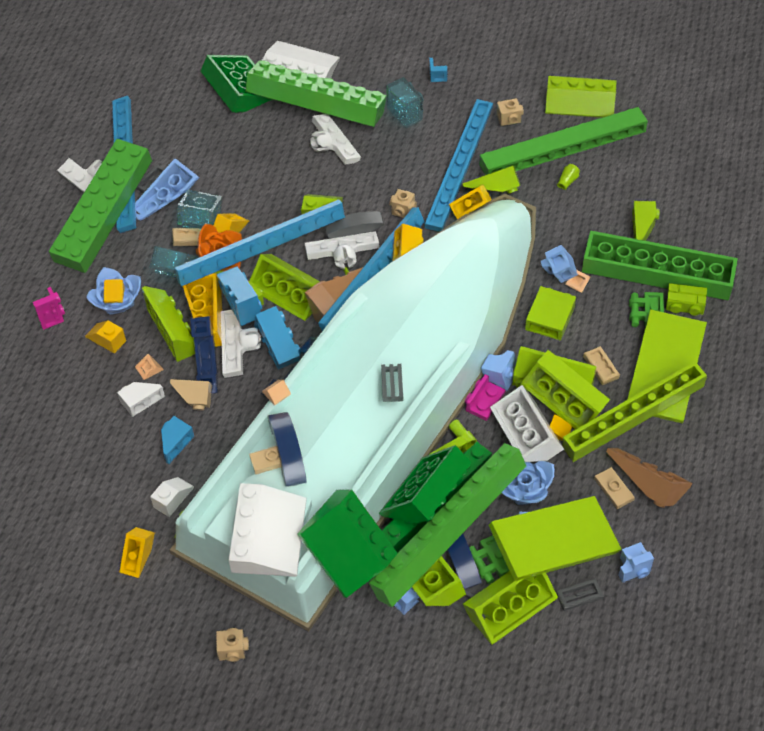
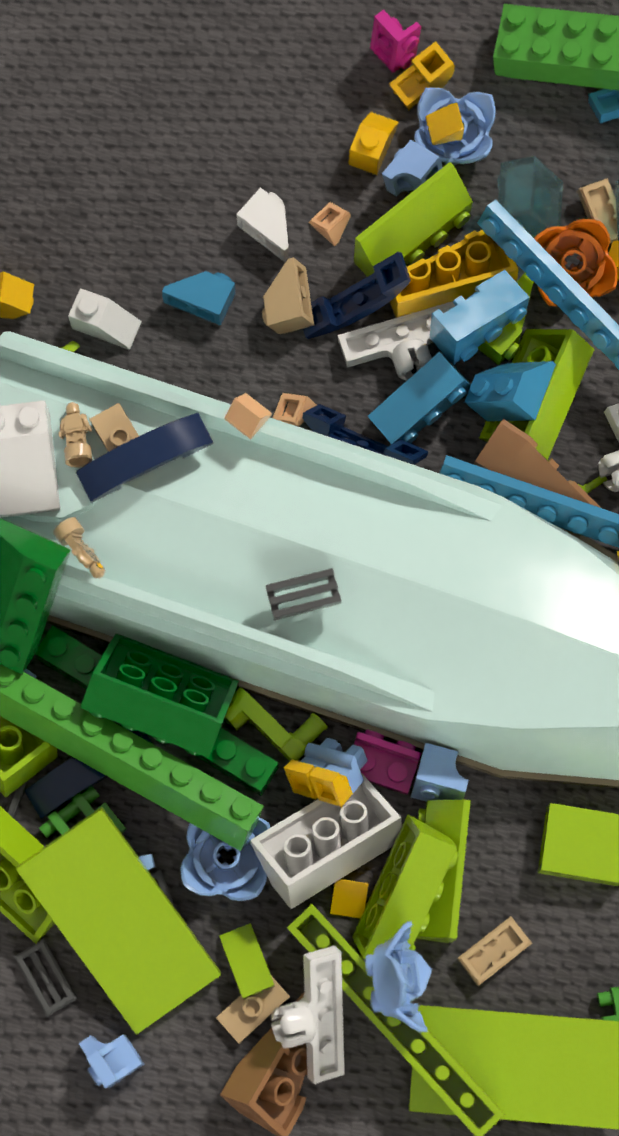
camera: 75 degrees right, 20 degrees up
(75, 301) = (428, 70): none -> yellow brick
(135, 313) = (410, 168): none -> light blue brick
(257, 405) = (296, 406): none -> light nougat slope
(272, 480) = (74, 428): none -> tan piece
(286, 291) = (510, 391): none -> dark azure slope
(325, 491) = (70, 533): none -> tan piece
(486, 419) = (327, 772): none -> hips
(587, 483) = (247, 961): none -> lime slope
(618, 389) = (398, 979): none -> light blue brick
(630, 447) = (317, 1016): none -> white plate

